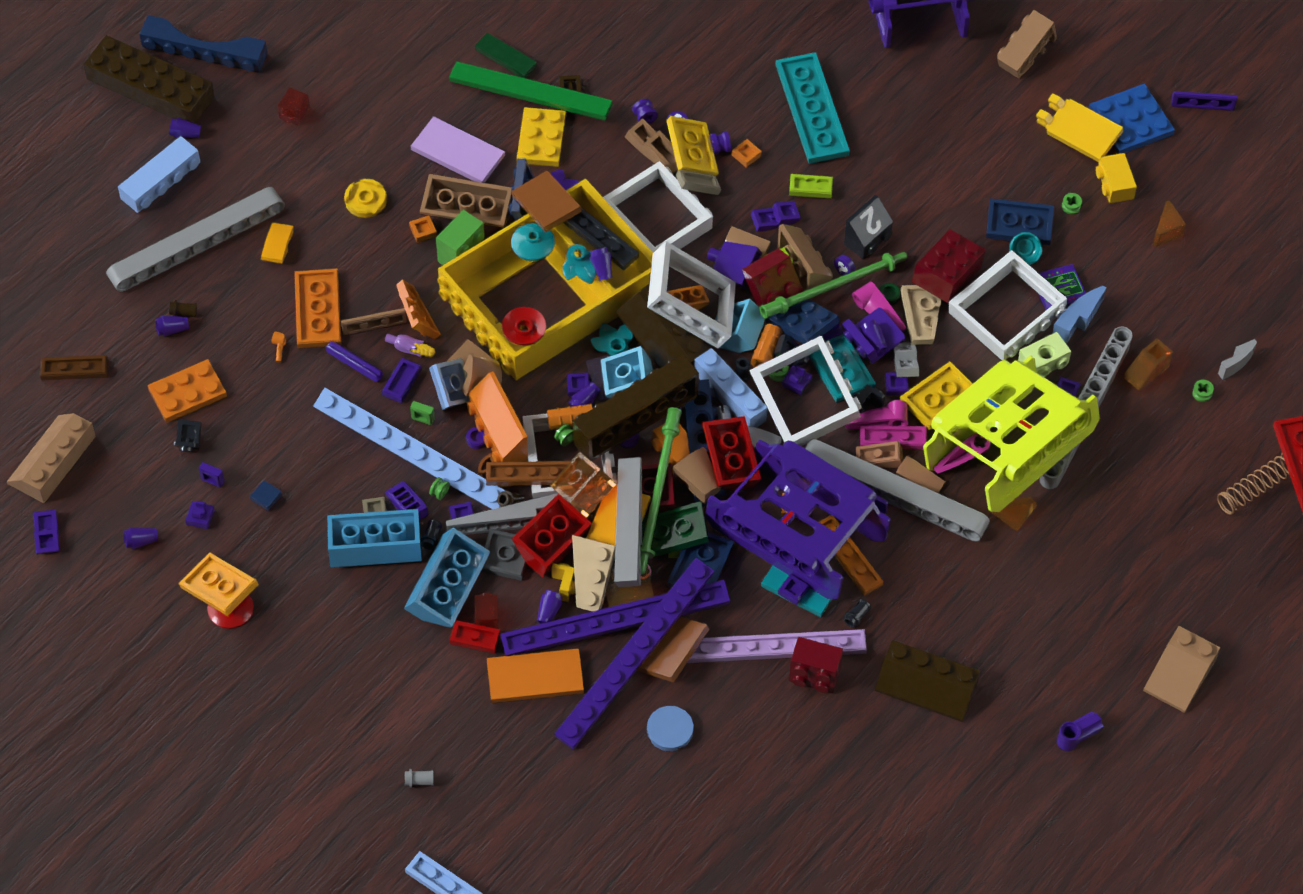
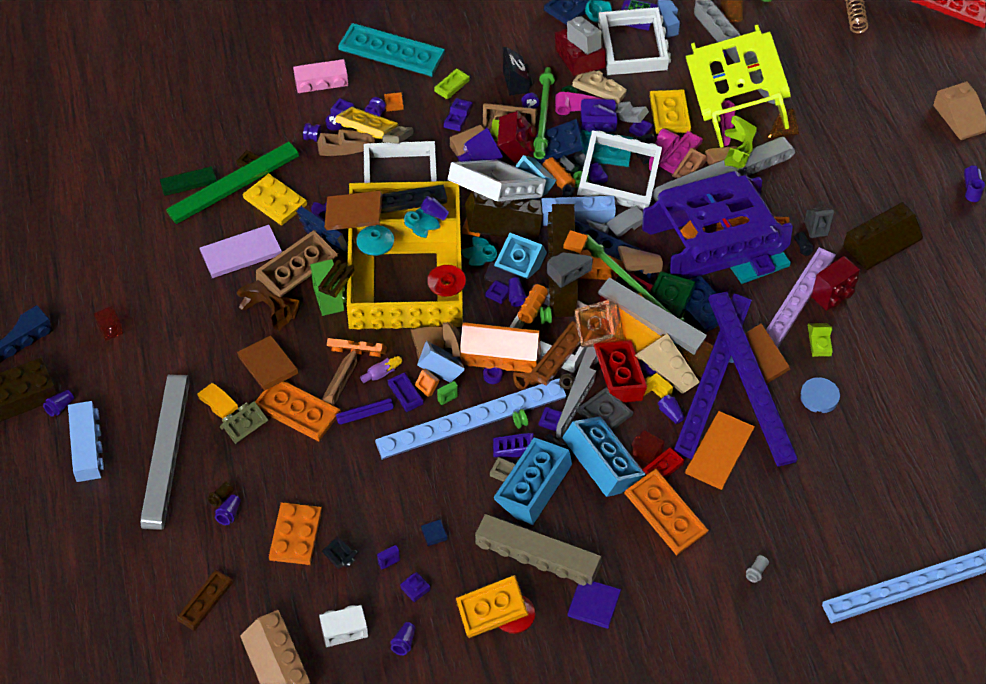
camera: 55 degrees left, 5 degrees down
(119, 483) = (343, 625): none -> white brick
(268, 277) = (244, 422): none -> olive bracket
(279, 340) = (304, 447): orange hand -> none
(285, 664) = (594, 604): none -> dark purple tile
(303, 586) = (537, 550): none -> dark tan brick
(346, 252) = (267, 363): none -> dark orange tile
(365, 198) = (228, 327): yellow tile -> none
(413, 192) = (257, 292): none -> reddish brown animal
(421, 389) = (427, 382): none -> orange tile
(424, 666) = (666, 511): none -> orange tile
(460, 236) = (330, 275): none -> dark brown tile
(605, 411) = (568, 267): none -> dark grey slope
(647, 400) = (575, 241): none -> orange tile
(701, 114) = (340, 106): none -> dark purple tile
(722, 72) = (320, 76): none -> bright pink brick
(731, 452) = (637, 231): red slope -> none
(743, 692) = (820, 339): none -> lime slope
(894, 608) = (818, 221): none -> dark grey slope
(916, 487) = (745, 133): none -> lime animal
(948, 253) = (584, 35): none -> light grey brick
(1050, 347) = (682, 45): yellowish green brick -> none

